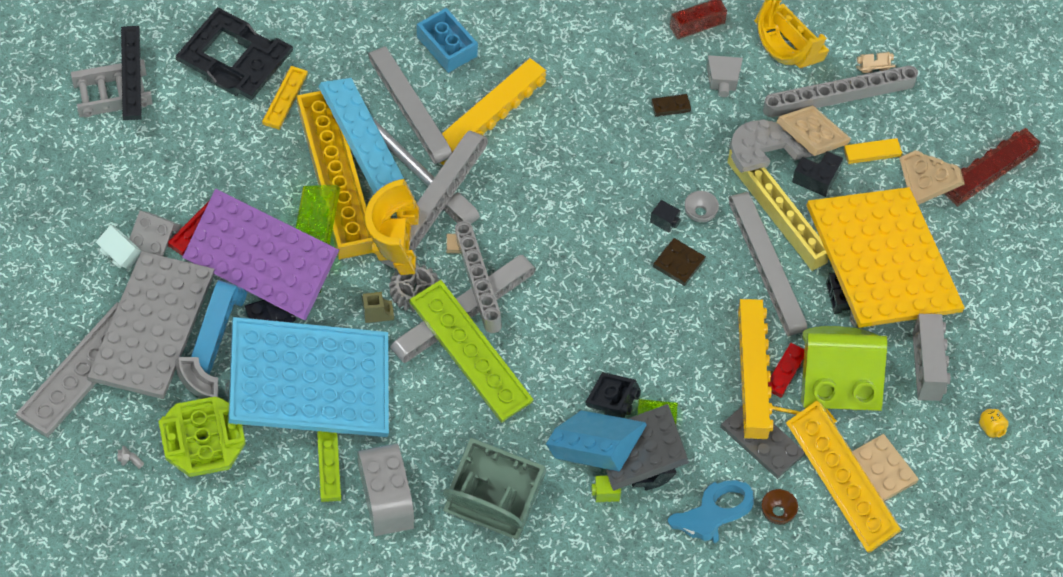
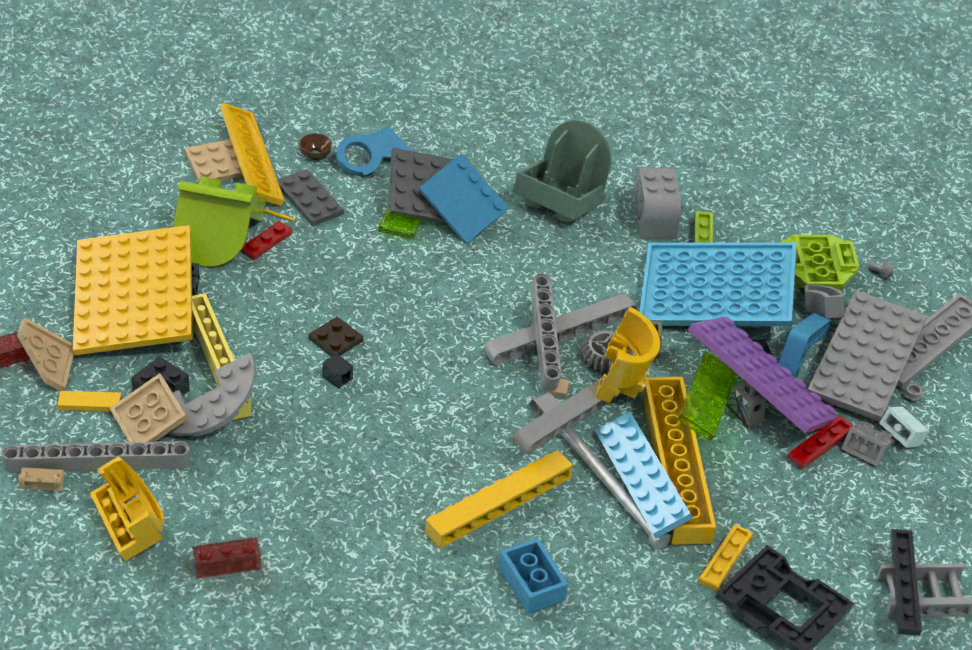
camera: 170 degrees left, 15 degrees down
(104, 295) = (913, 392): none -> light grey plate
(410, 105) = (589, 509): light grey beam -> none
(471, 351) = (567, 286): lime plate -> none
(614, 395) = (435, 240): black plate -> none
(671, 105) = (291, 480): dark brown plate -> none
(703, 200) = (297, 366): light grey piece -> none
(723, 73) = (219, 495): light grey torso -> none
(754, 369) = (298, 234): yellow brick -> none
(767, 264) = (249, 312): light grey beam -> none
(930, 357) = (132, 206): light grey brick -> none
(993, 423) = (97, 169): yellow head -> none

